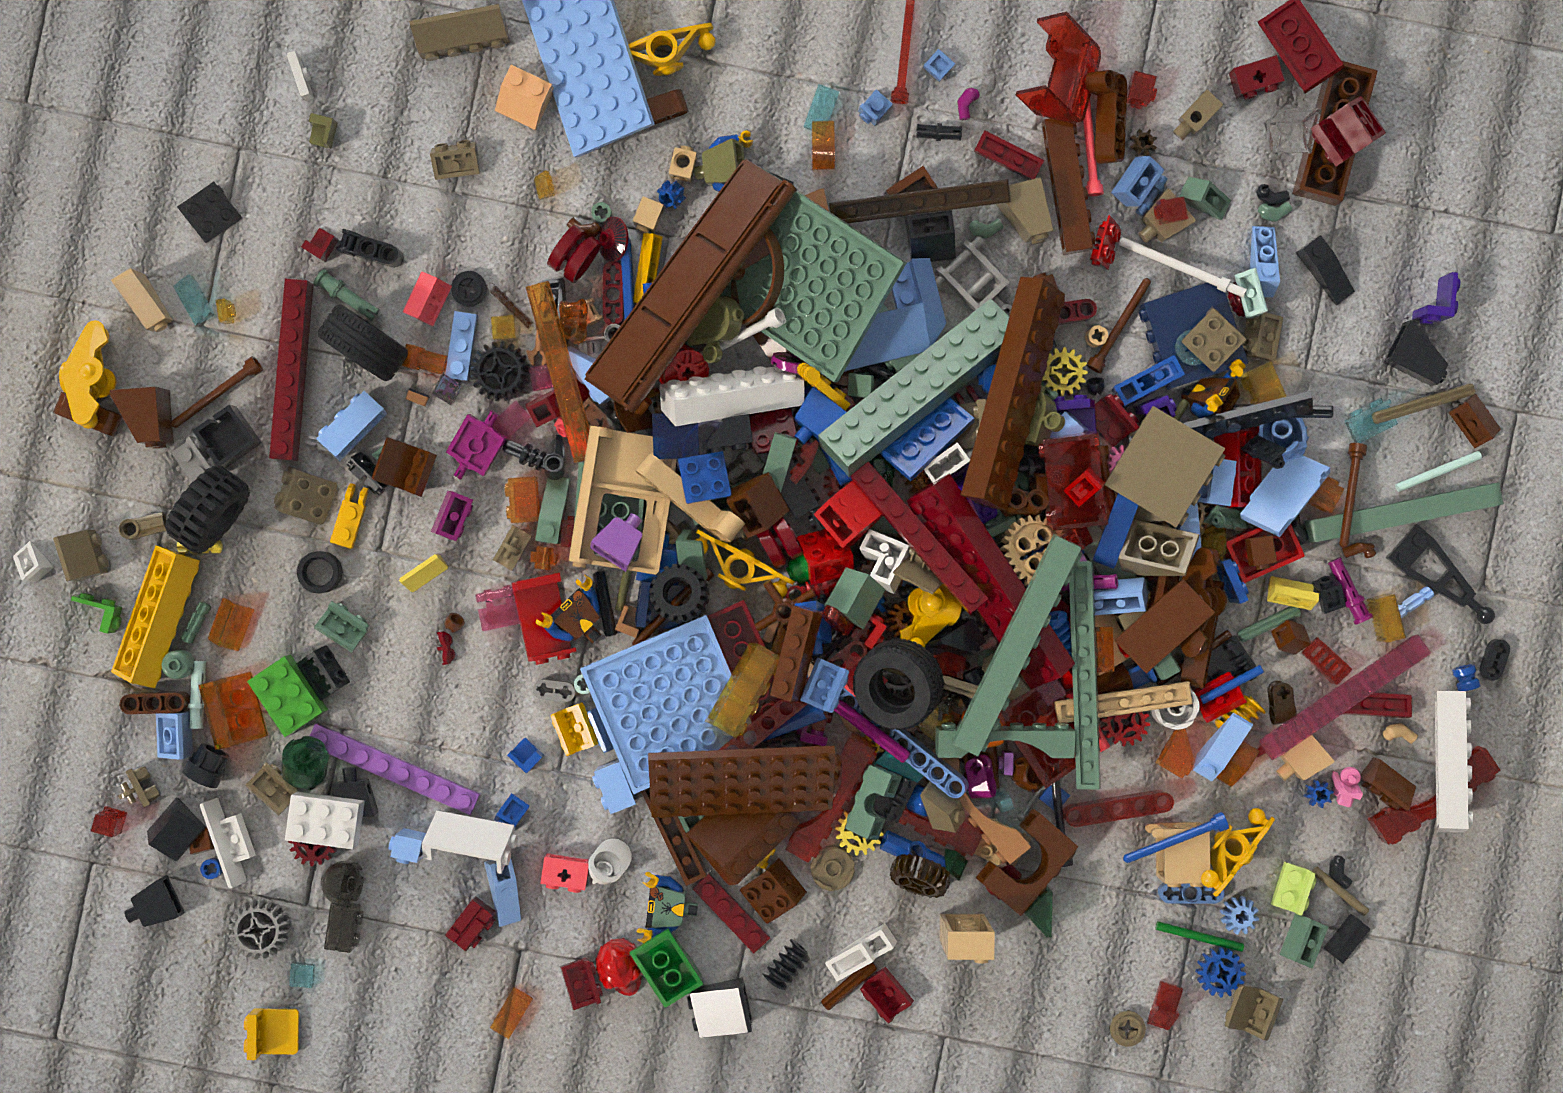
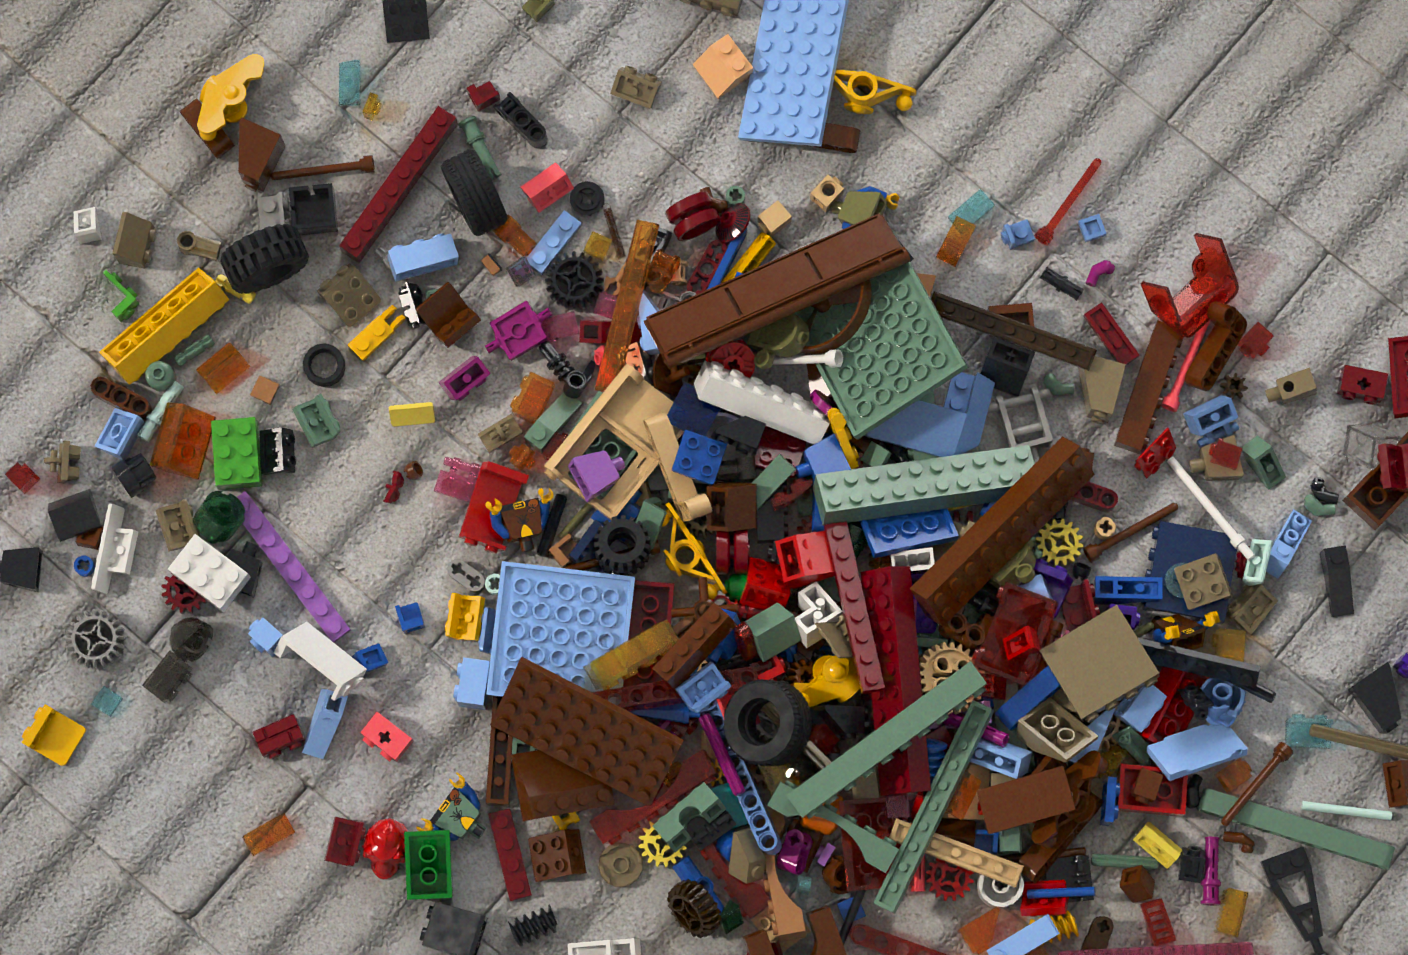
camera: 25 degrees right, 10 degrees down
(142, 299) = (309, 60): tan slope -> none
(280, 623) = (265, 390): none -> medium nougat tile
(544, 185) = (699, 147): clear yellow slope -> none
(609, 861) = (429, 748): white piece -> none
(671, 194) = (803, 212): blue gear -> none
(1415, 601) = (1264, 913): light blue axle -> none

